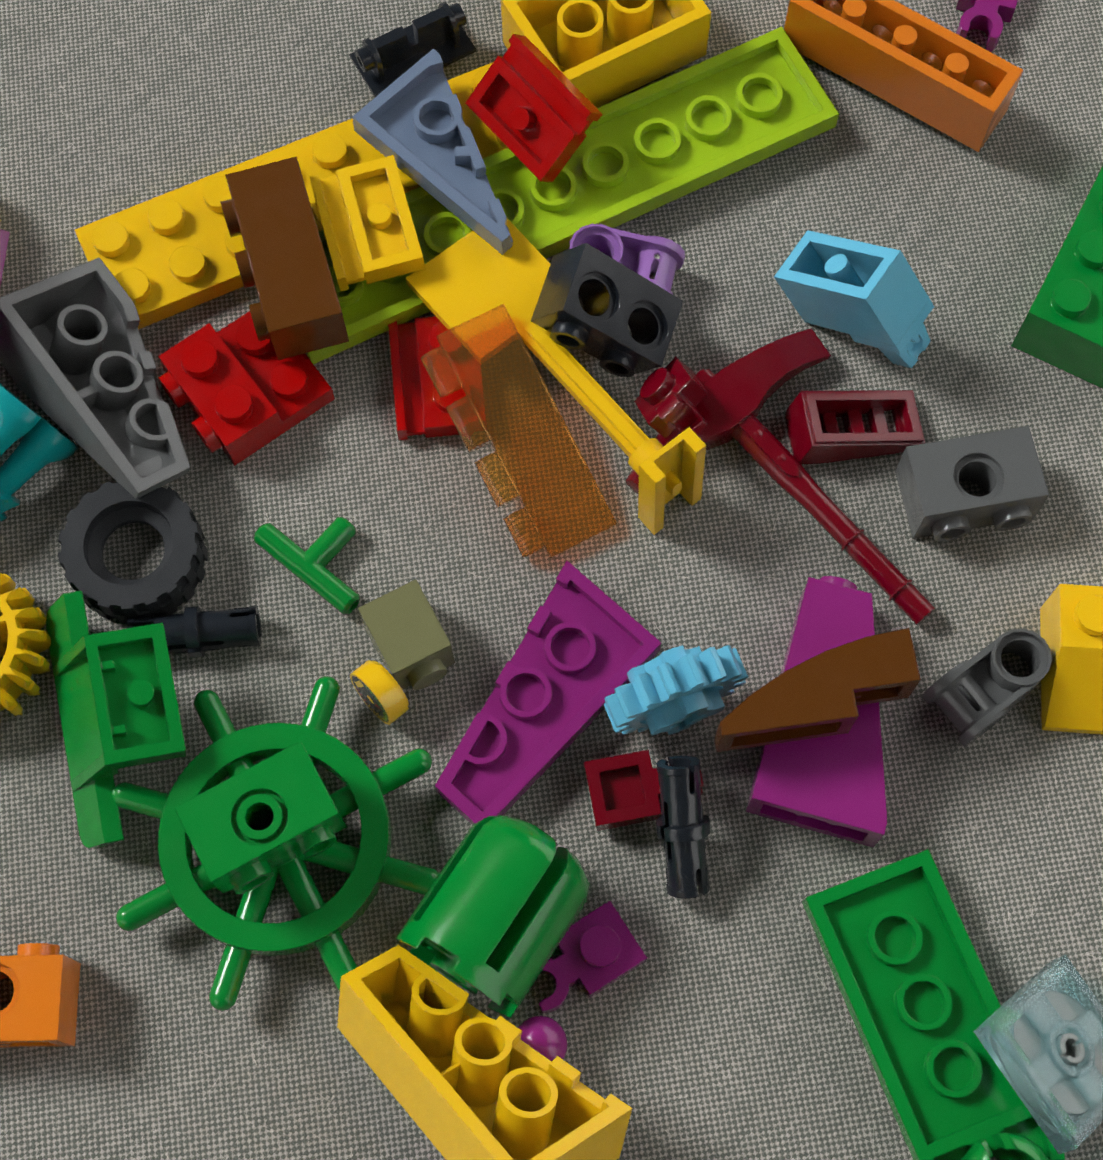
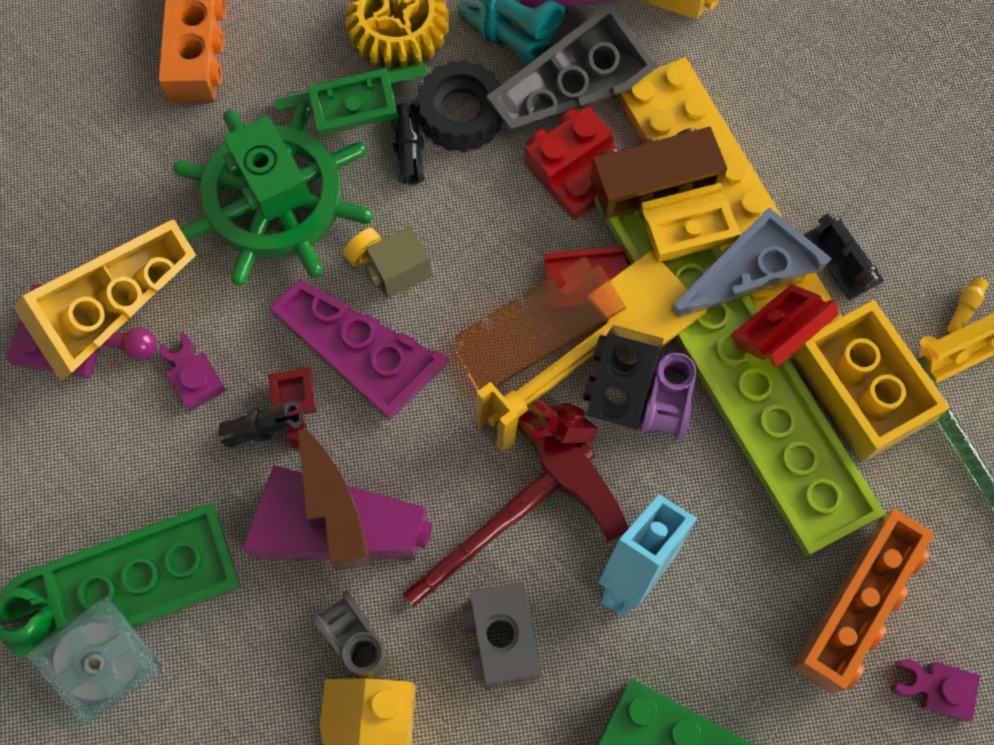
camera: 90 degrees right, 0 degrees up
(311, 564) = (455, 208): green piece -> none
(498, 910) = (210, 310): green cylinder -> none
(675, 690) = (346, 417): medium azure gear -> none
(816, 433) = (556, 598): dark red slope -> none

